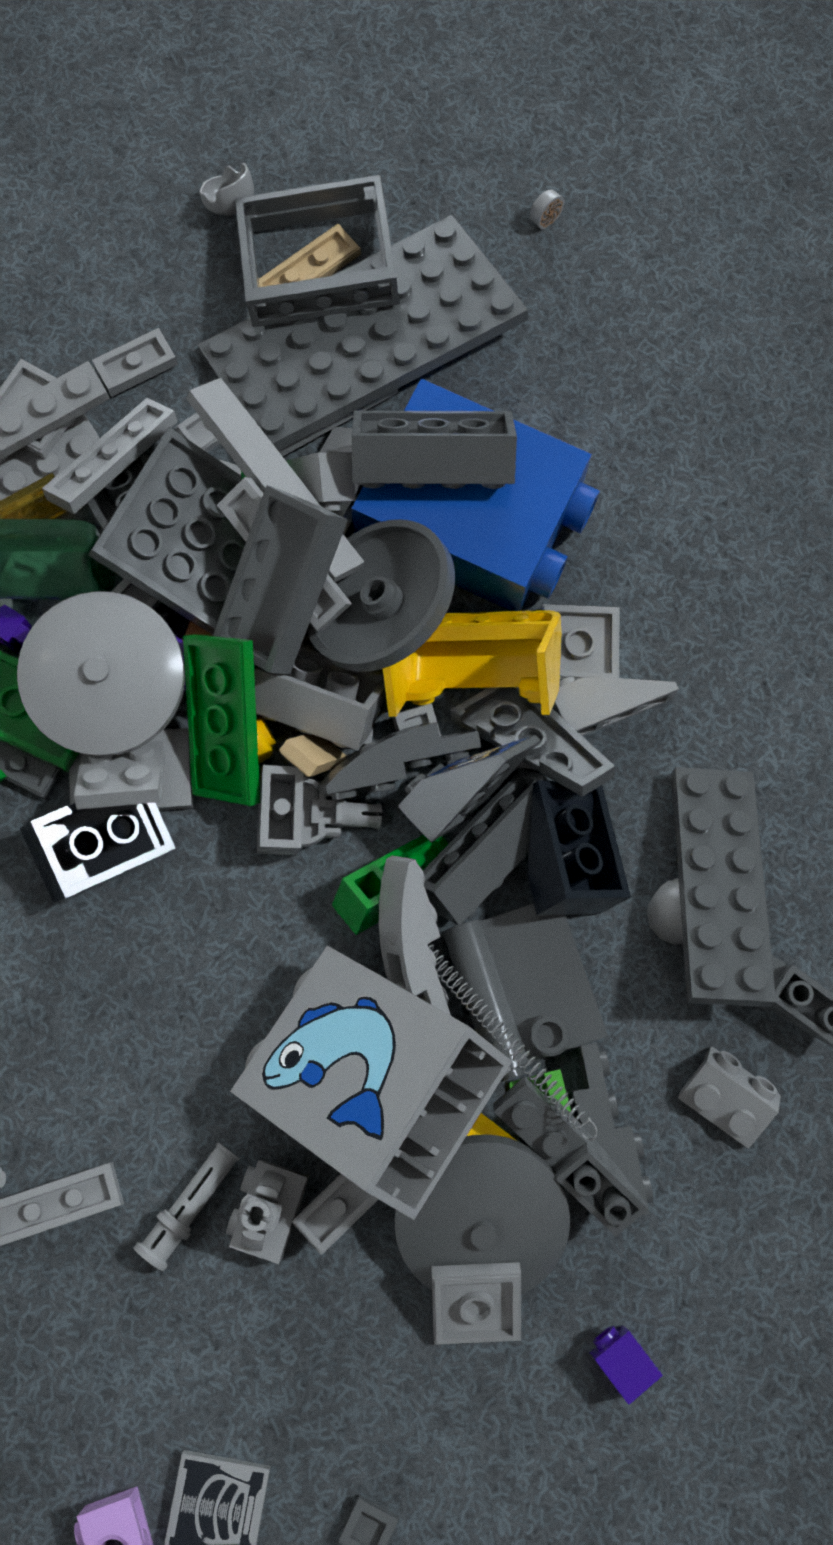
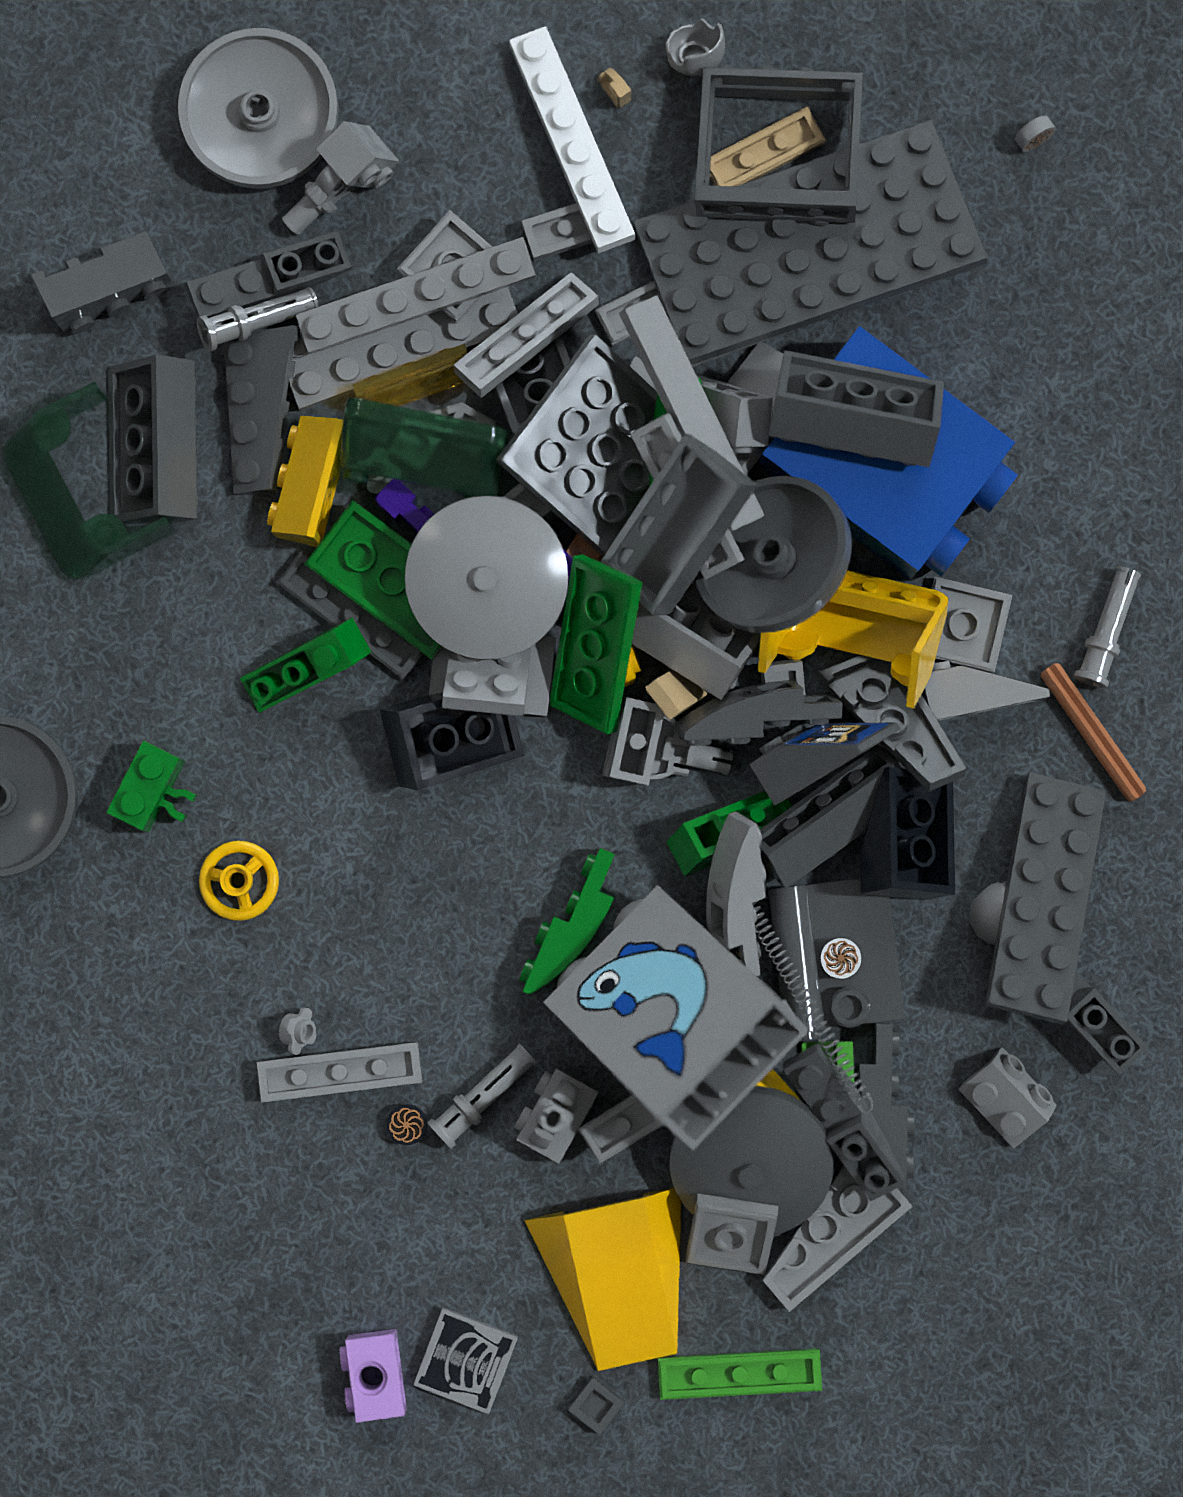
camera: 10 degrees right, 10 degrees up
(113, 1254) = (407, 1124): none -> tile
(128, 286) = (572, 140): none -> white plate
(161, 237) = (615, 87): none -> tan tile
(248, 1023) = (565, 940): none -> green slope
(365, 1374) = (618, 1274): none -> yellow wedge
(516, 1458) = (739, 1373): none -> bright green tile
(530, 986) = (841, 958): none -> tile
(582, 1286) = (831, 1238): none -> light grey wing
(624, 1362) = (854, 1311): dark purple brick -> none
(716, 636) = (1103, 645): none -> light grey pin
(728, 720) = (1093, 732): none -> nougat axle

